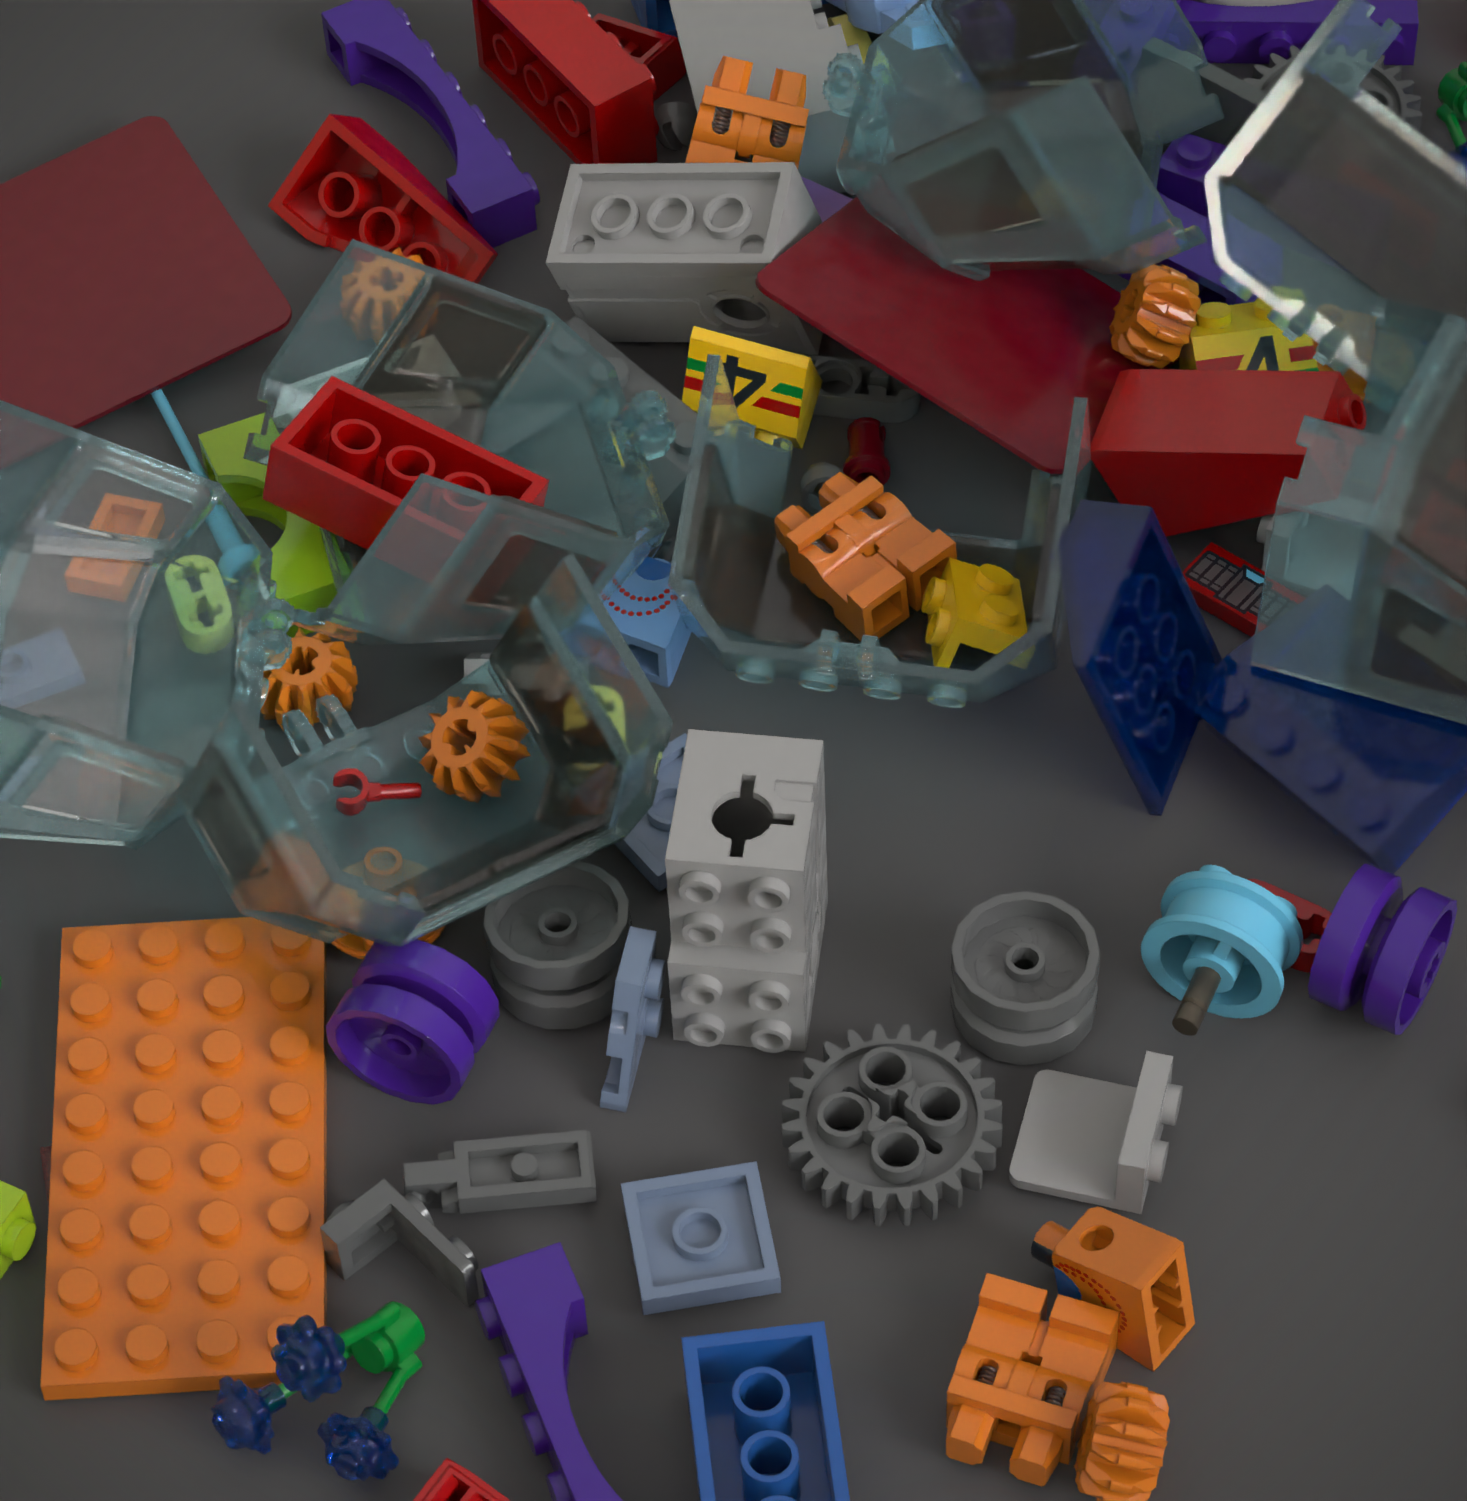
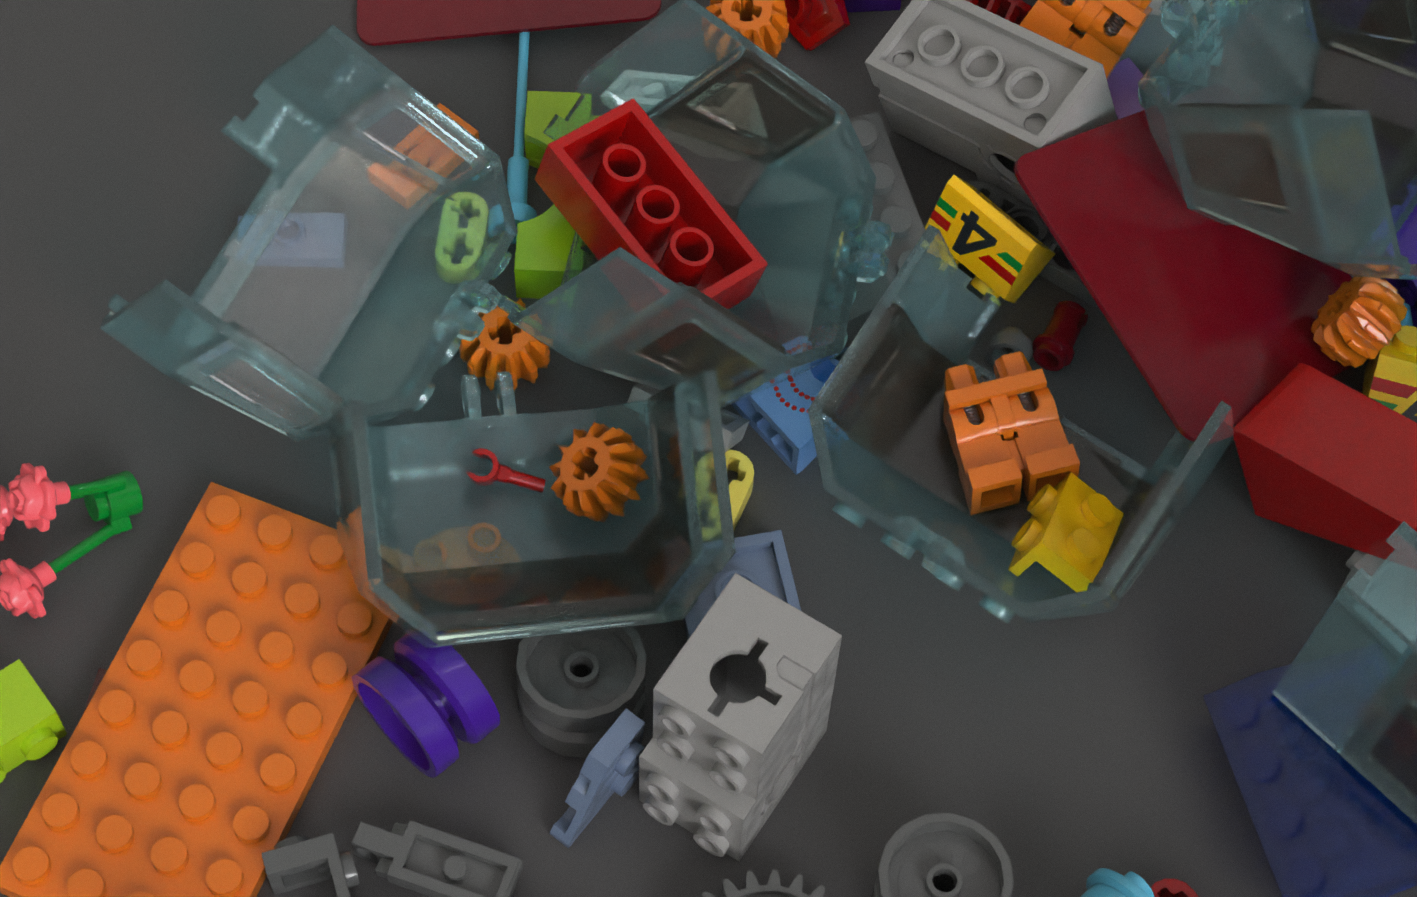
camera: 20 degrees right, 10 degrees up
(1135, 638) = (1174, 633): clear blue slope -> none
(1226, 587) = (1300, 589): tile -> none

